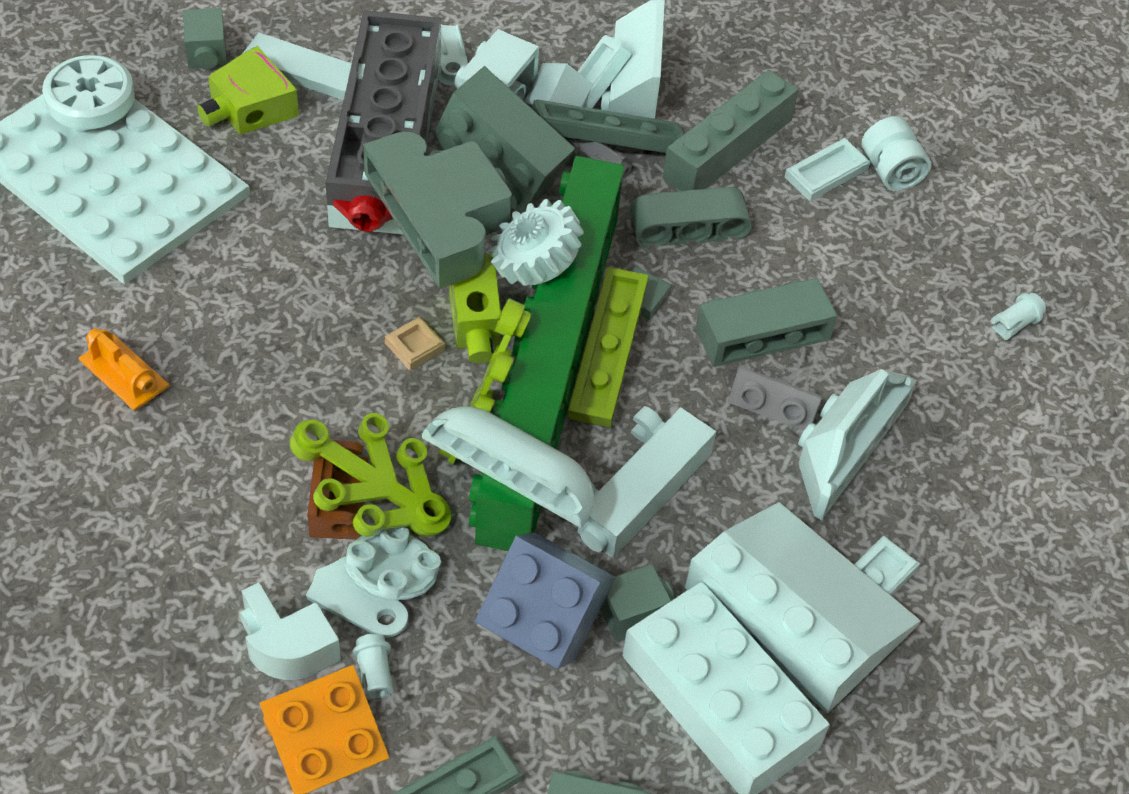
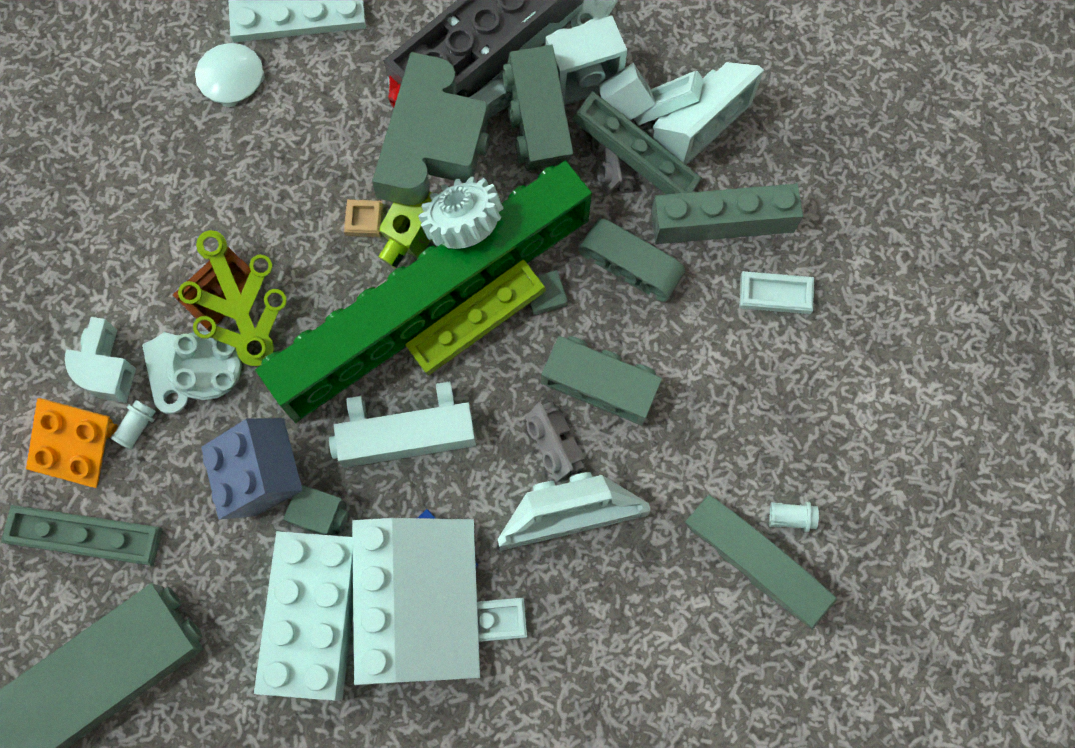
camera: 45 degrees right, 20 degrees up
(121, 369) = (174, 105): light orange hinge -> none
(152, 309) = (229, 73): none -> light aqua dish
(511, 322) = (388, 263): lime plant -> none
(514, 460) = (296, 366): light aqua brick -> none
(896, 153) = (834, 320): light aqua wheel -> none
(1029, 361) = (761, 561): none -> sand green slope

